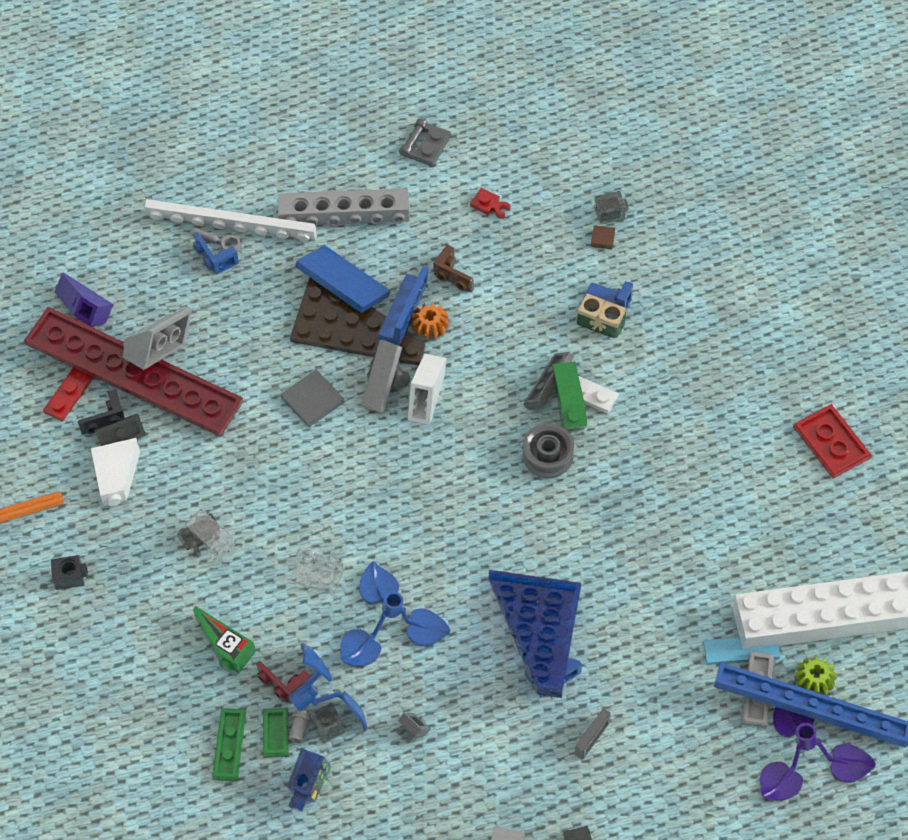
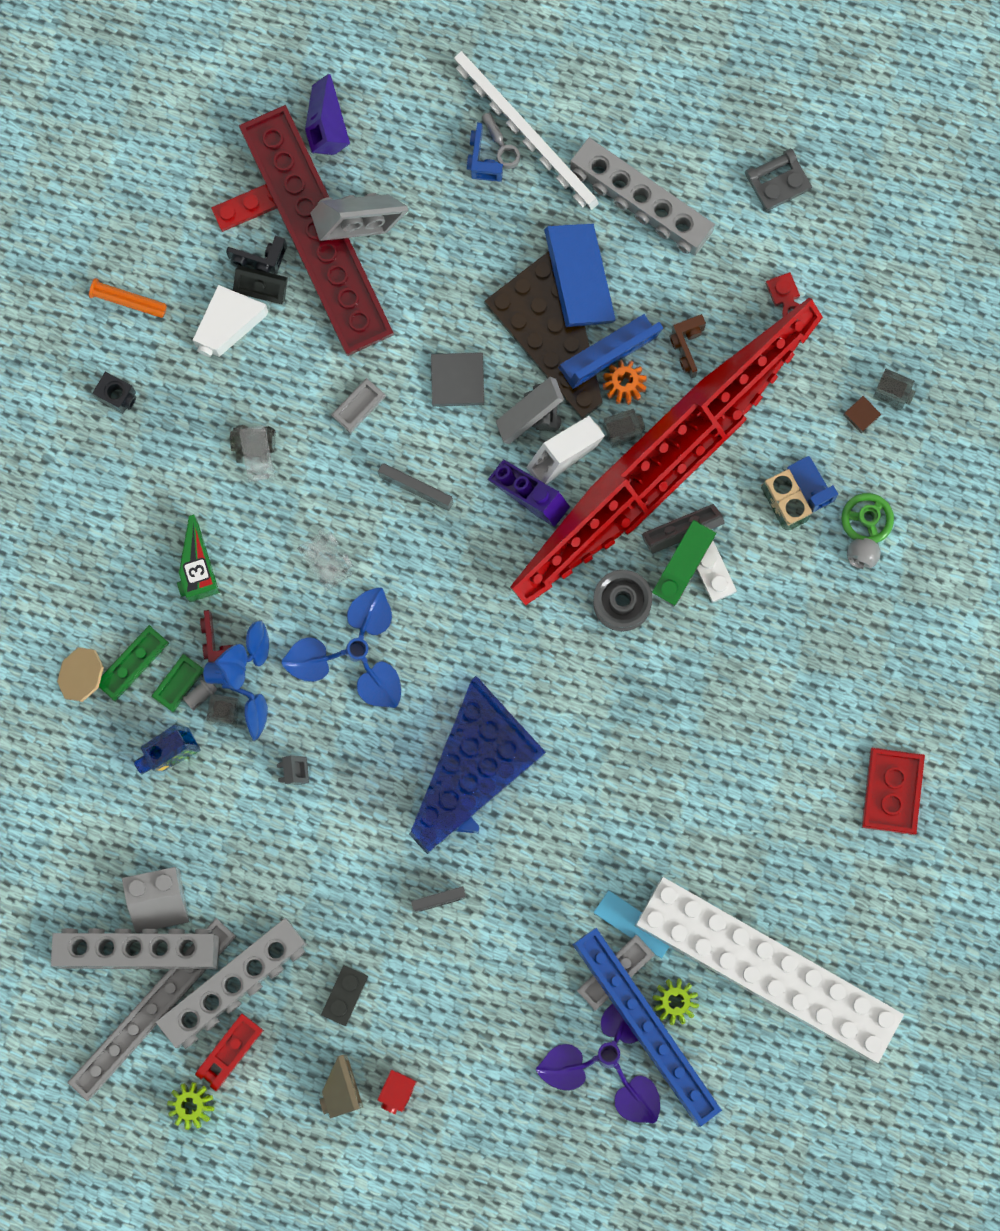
camera: 40 degrees right, 20 degrees up
(197, 777) = (80, 674): none -> tan piece
(255, 461) = (358, 405): none -> light grey tile
(341, 481) = (415, 486): none -> dark grey tile
(428, 429) = (530, 492): none -> dark purple slope
(454, 348) = (623, 428): none -> clear smoke brick
(497, 345) = (667, 453): none -> red wedge
(665, 284) = (874, 511): none -> bright green piece
(680, 313) = (863, 553): none -> light grey piece

